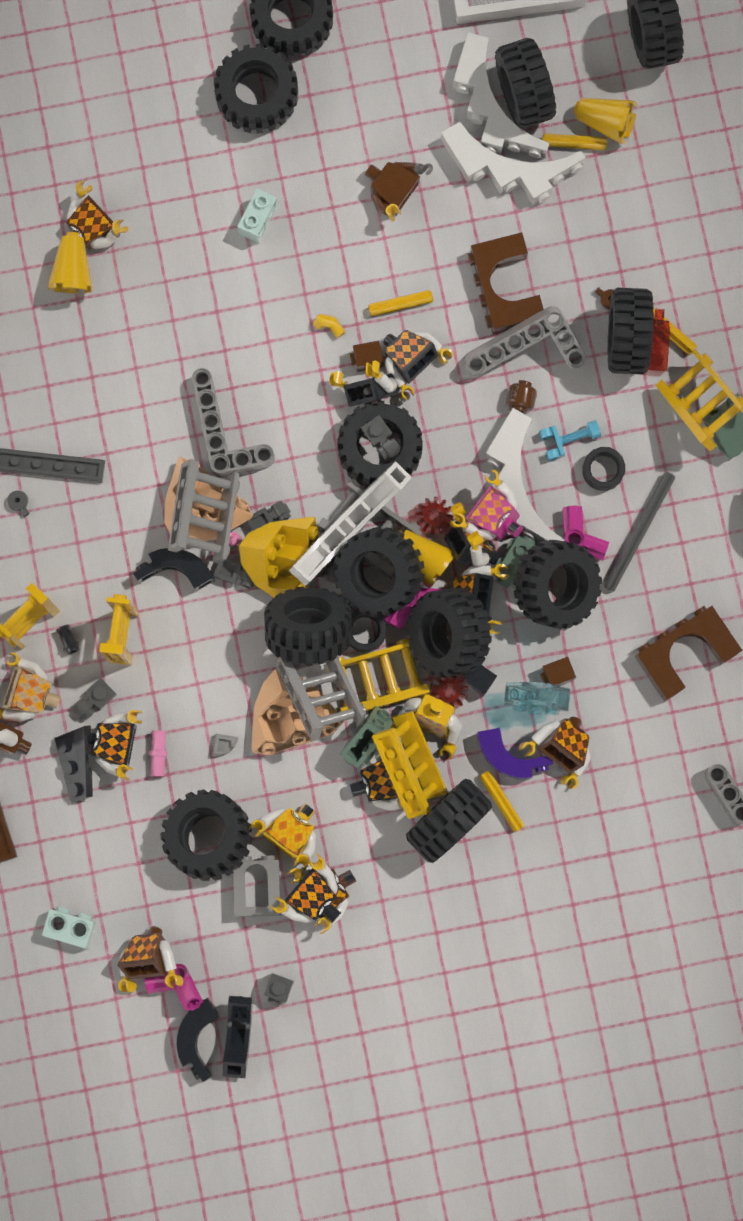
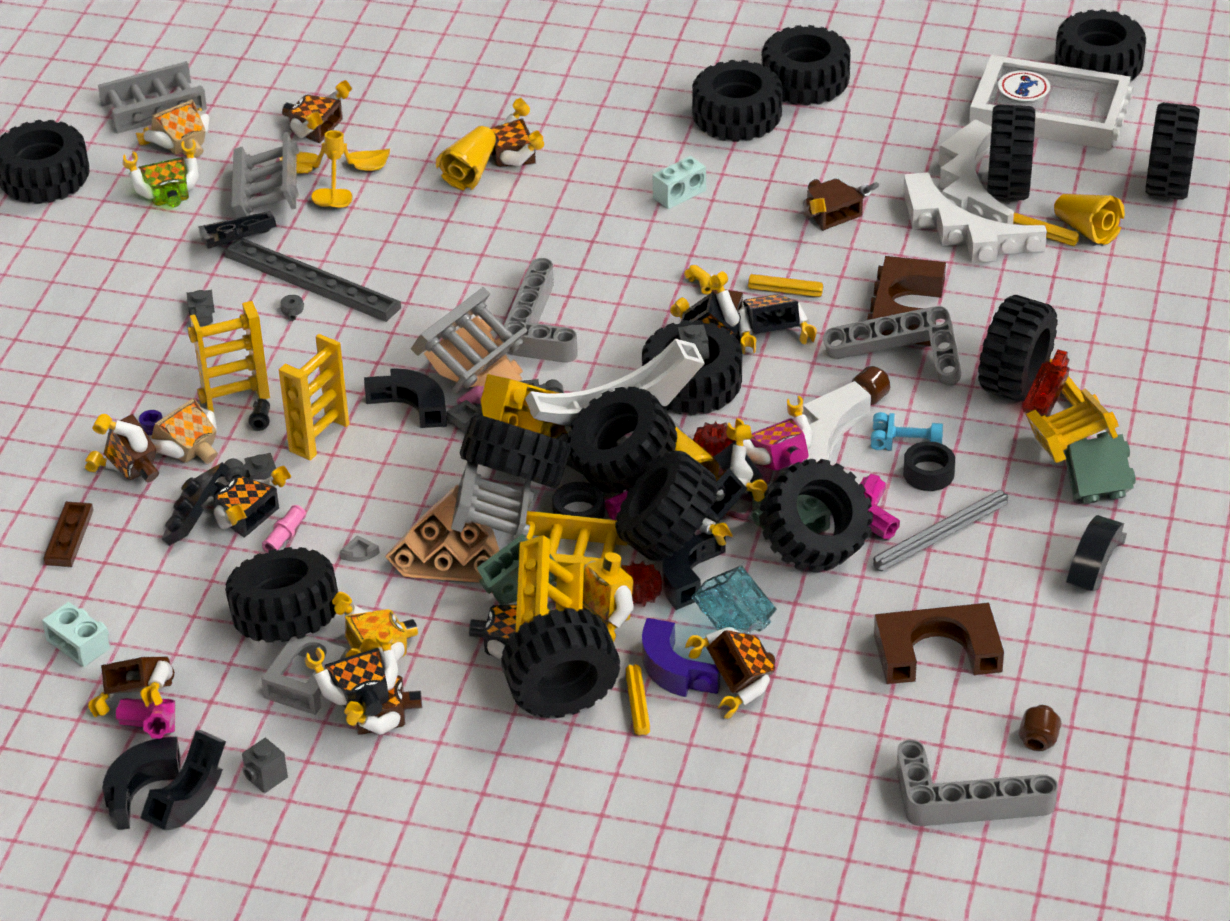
camera: 25 degrees right, 40 degrees down
(558, 672) = (783, 602): reddish brown brick -> none

